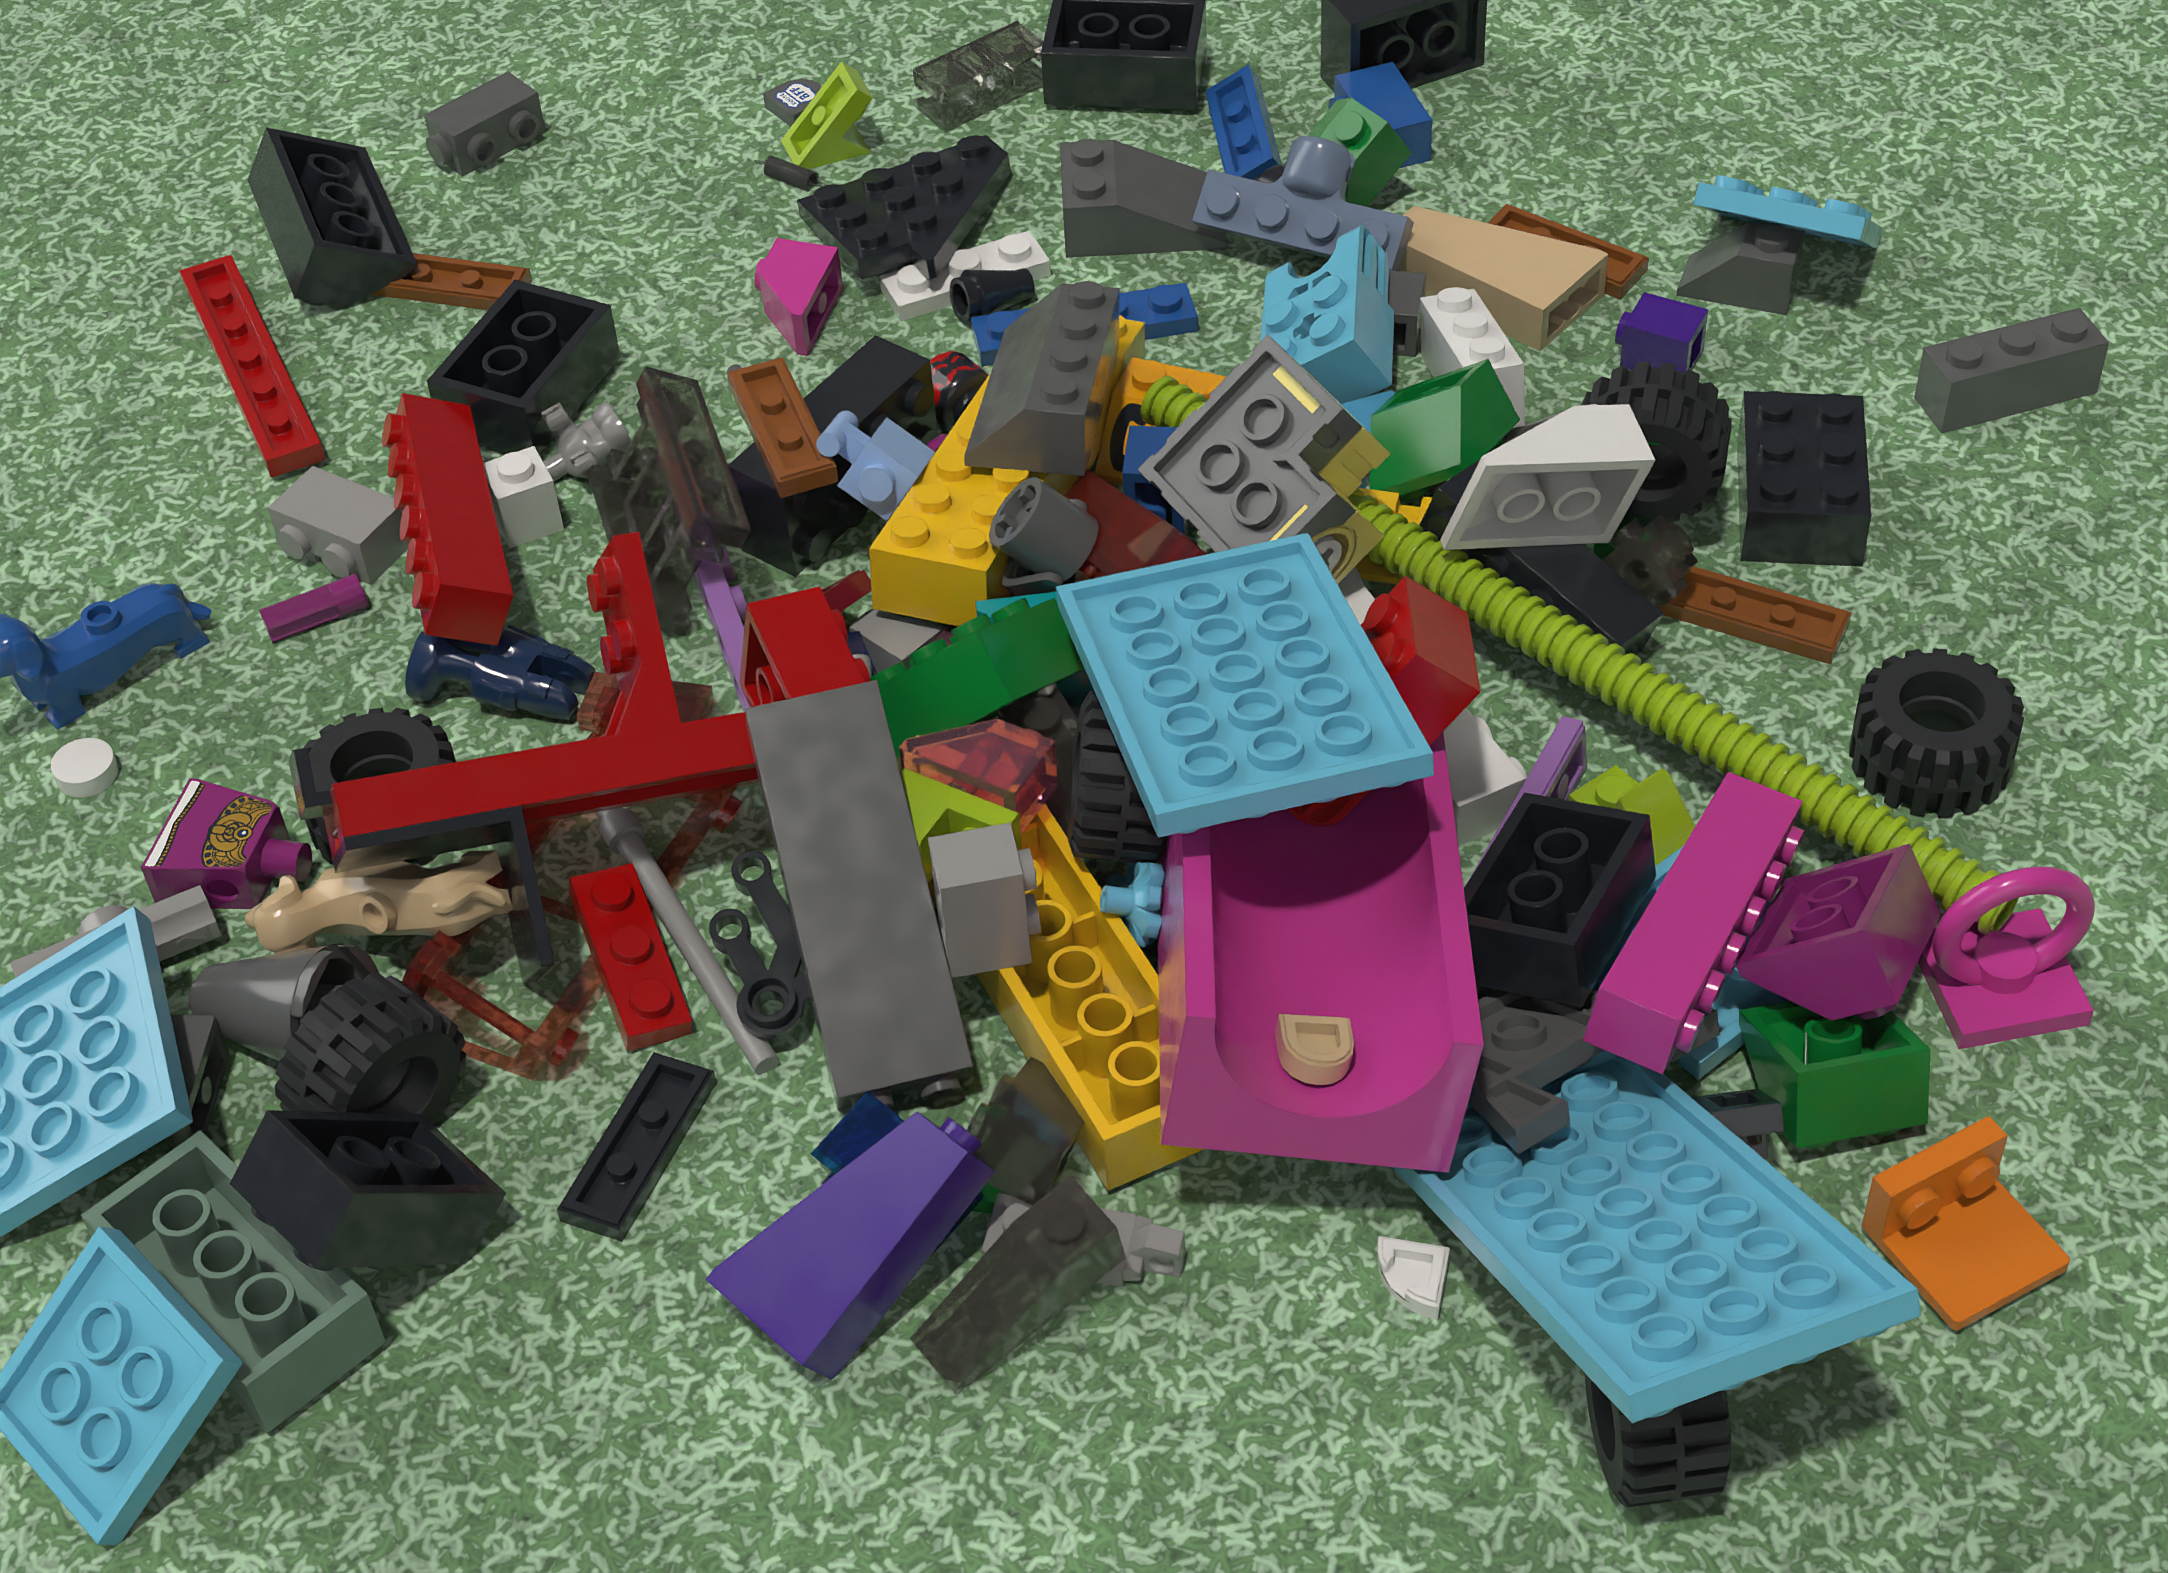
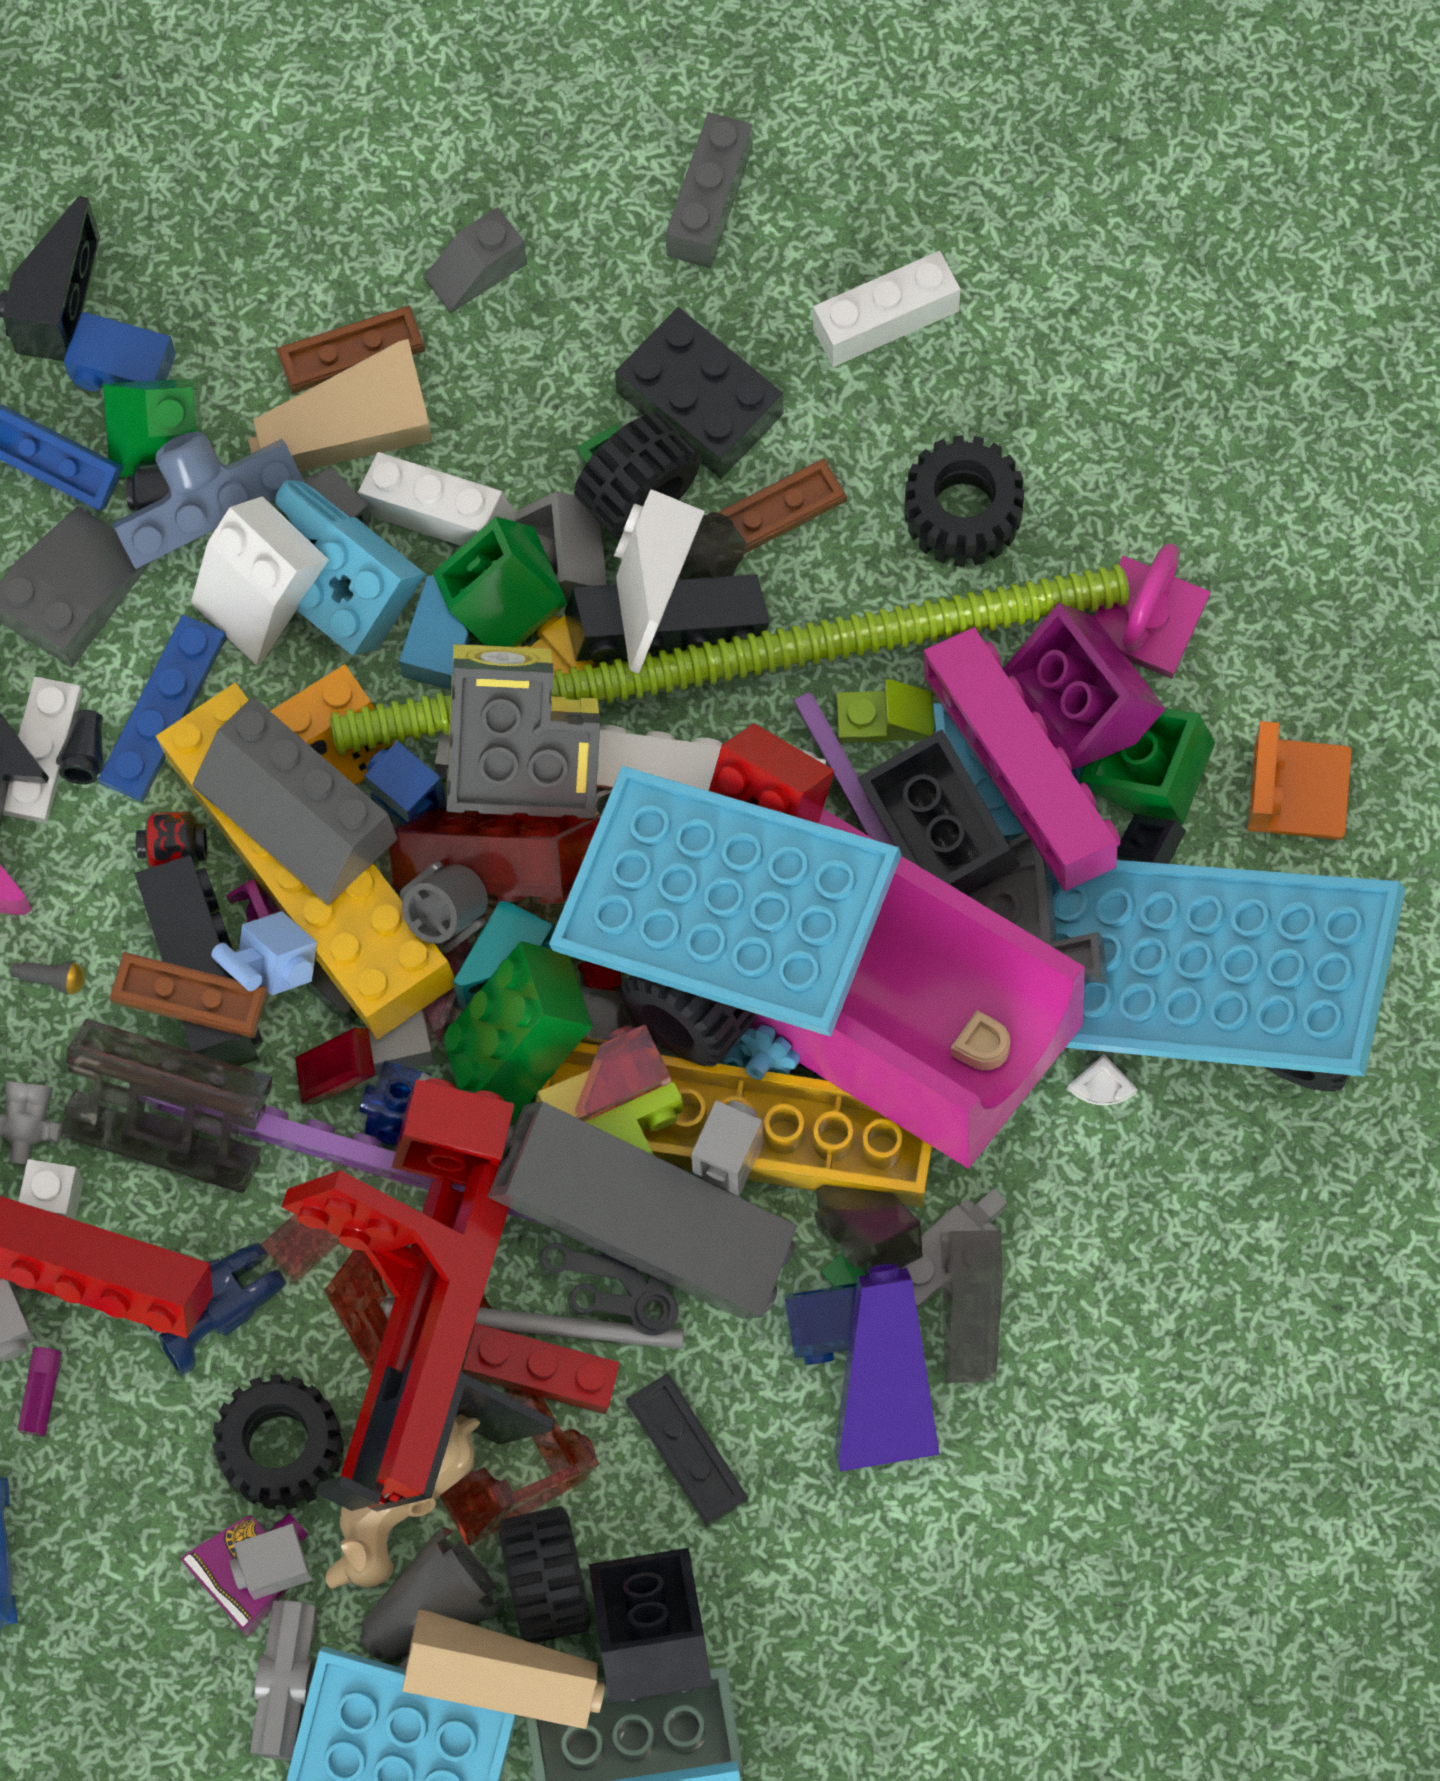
camera: 55 degrees left, 25 degrees up
(84, 767) = (79, 1622): white tile -> none
(197, 1052) = (499, 1672): none -> tan slope
(223, 831) = (270, 1562): none -> light grey brick
(1266, 265) = (255, 576): none -> white slope
(1662, 332) = (499, 365): dark purple brick -> none
(1789, 209) = (472, 200): medium azure plate -> none
(2060, 558) = (886, 308): none -> white brick

